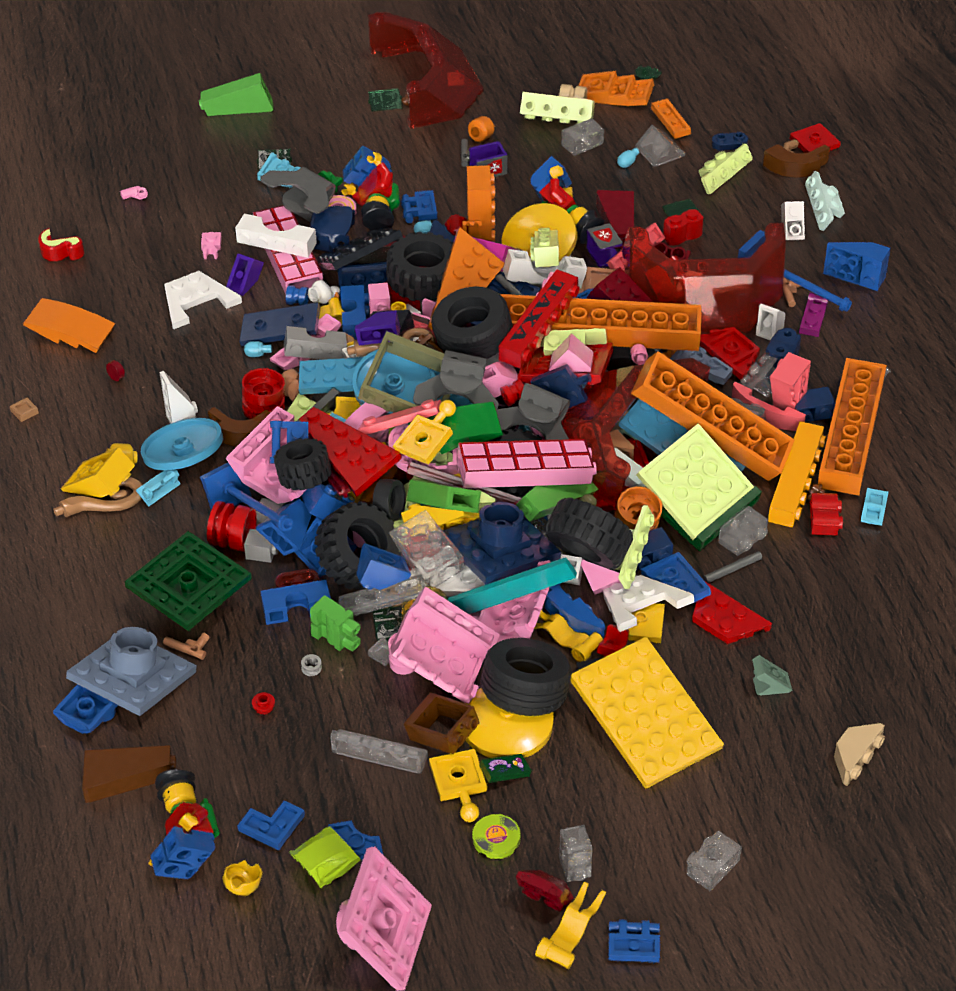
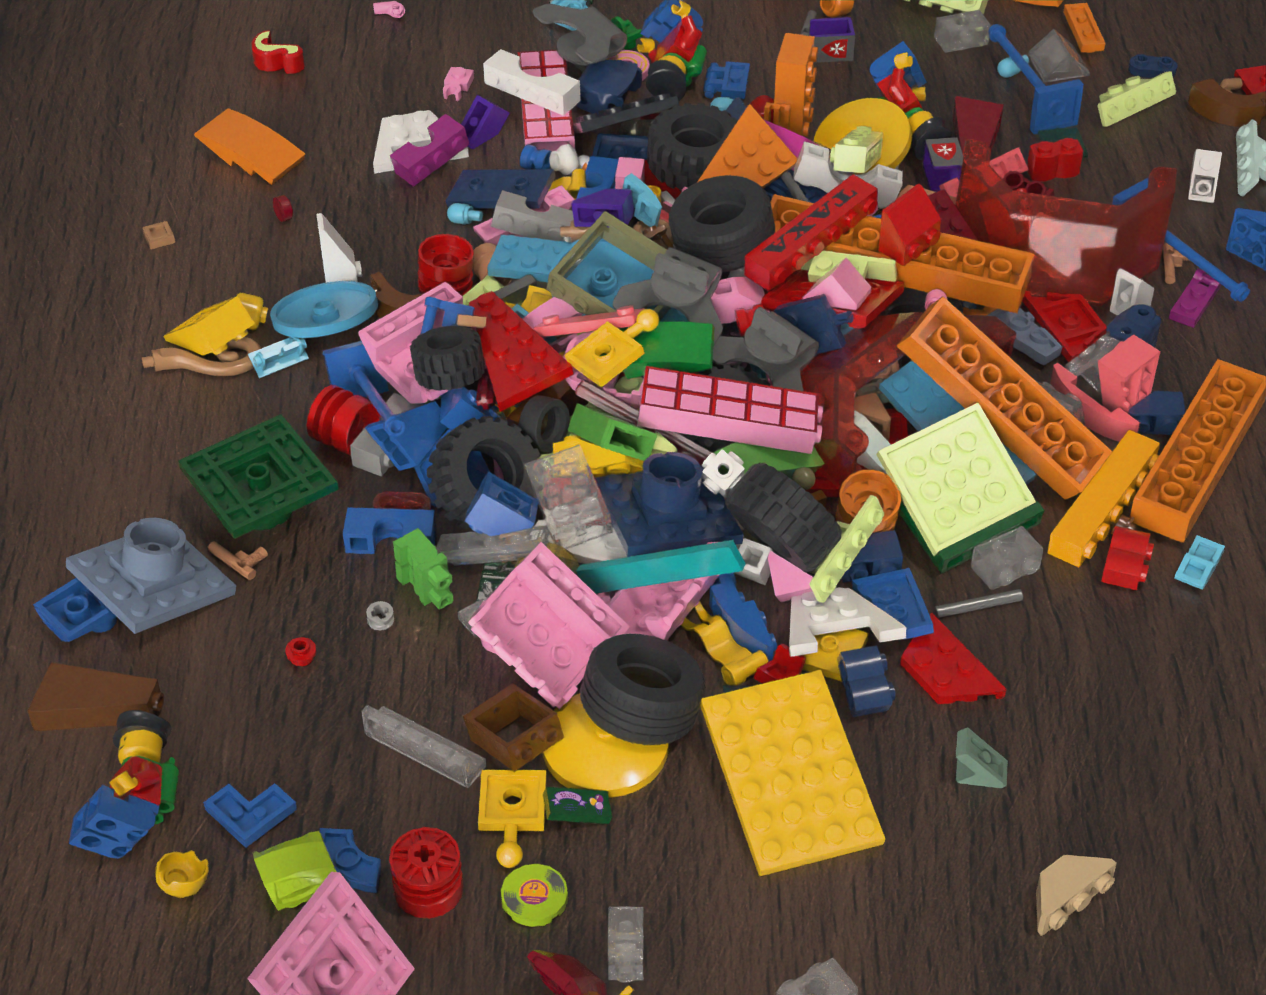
camera: 15 degrees right, 0 degrees up
(207, 315) = (417, 163): none -> magenta arch
(311, 432) = (471, 320): none -> medium nougat tile
(408, 318) = (645, 201): none -> medium azure slope
(418, 837) = (426, 872): none -> red wheel
(532, 516) = (722, 483): none -> white brick
(610, 302) = (909, 226): none -> red slope
(670, 185) = (1052, 104): none -> blue tile
(675, 638) = (865, 681): none -> dark blue brick

